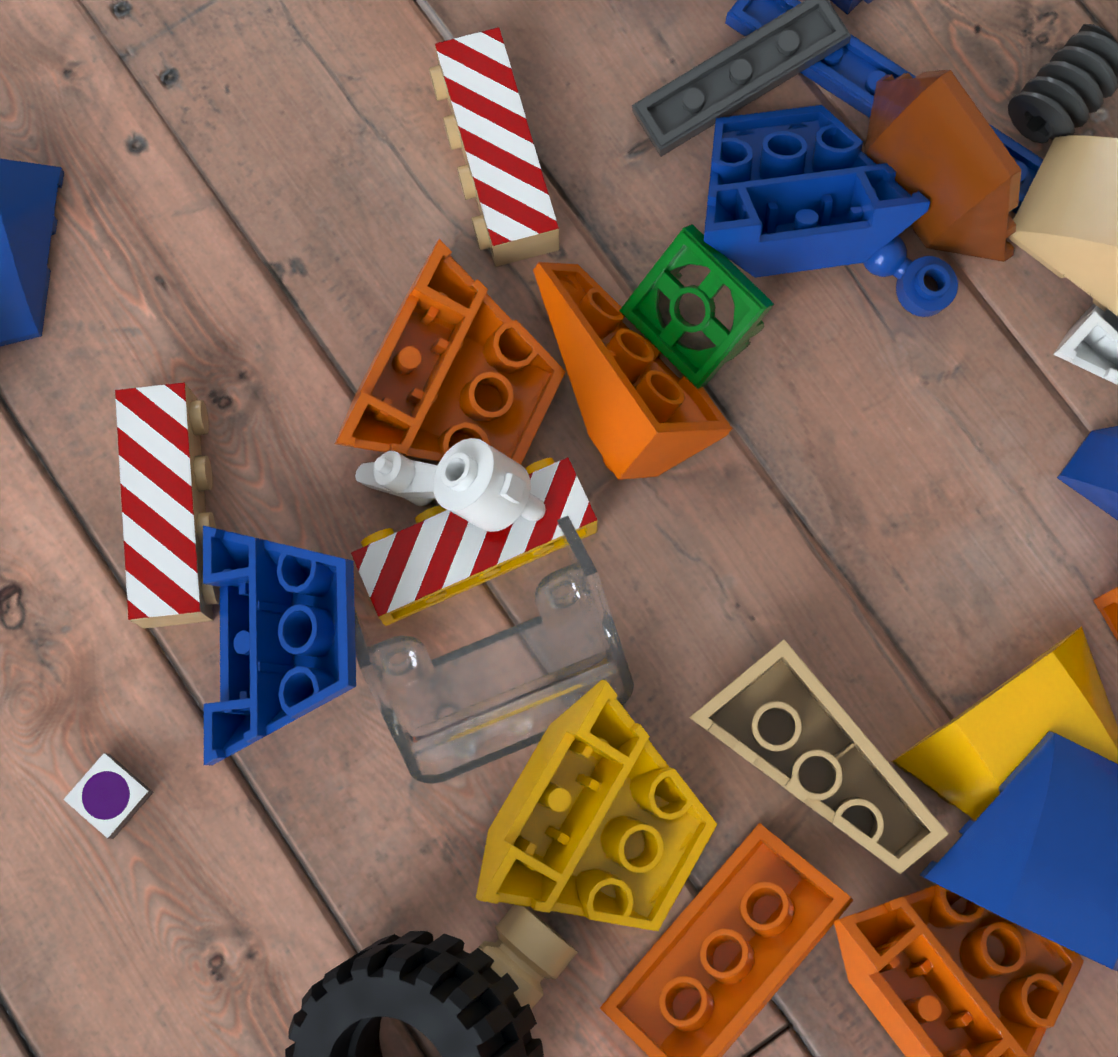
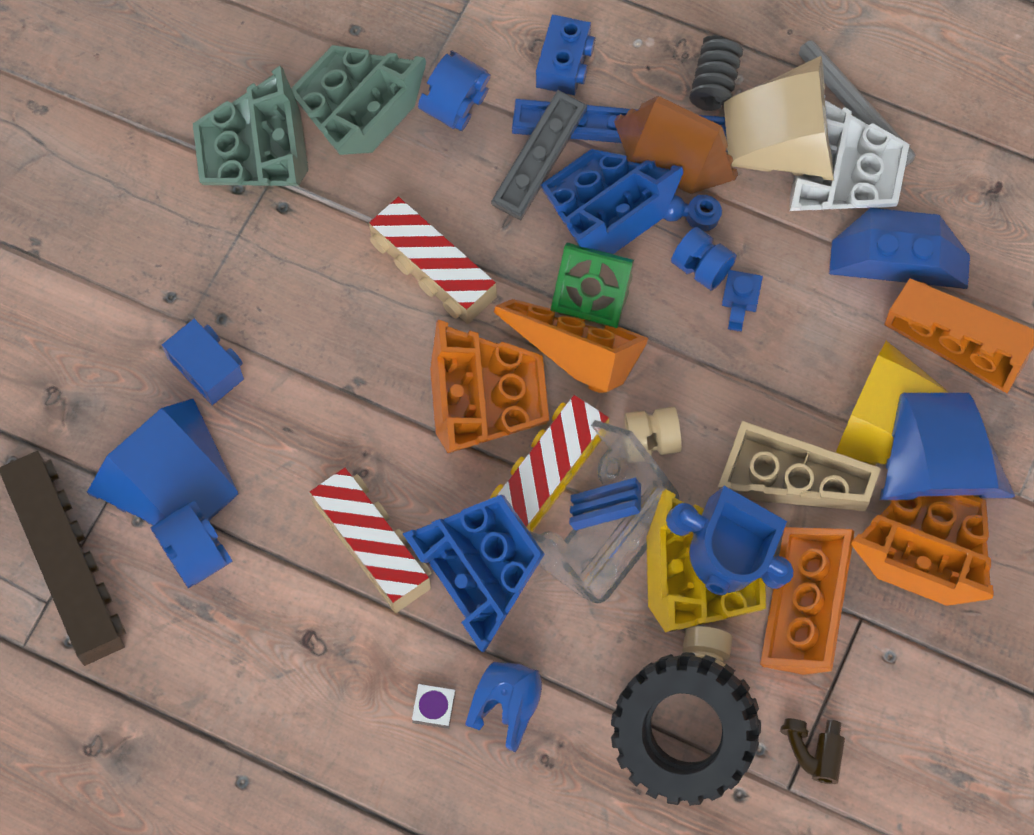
camera: 30 degrees left, 10 degrees down
(95, 121) = (204, 361): none -> blue brick
(214, 852) = (516, 689): none -> blue helmet
(468, 481) = (534, 426): white piece -> none
(523, 636) = (605, 499): none -> blue tile
(650, 575) = (657, 430): none -> tan wheel
(656, 818) = (732, 542): none -> blue piece
(883, 356) = (703, 258): none -> blue wheel
(907, 440) = (741, 295): none -> blue plate

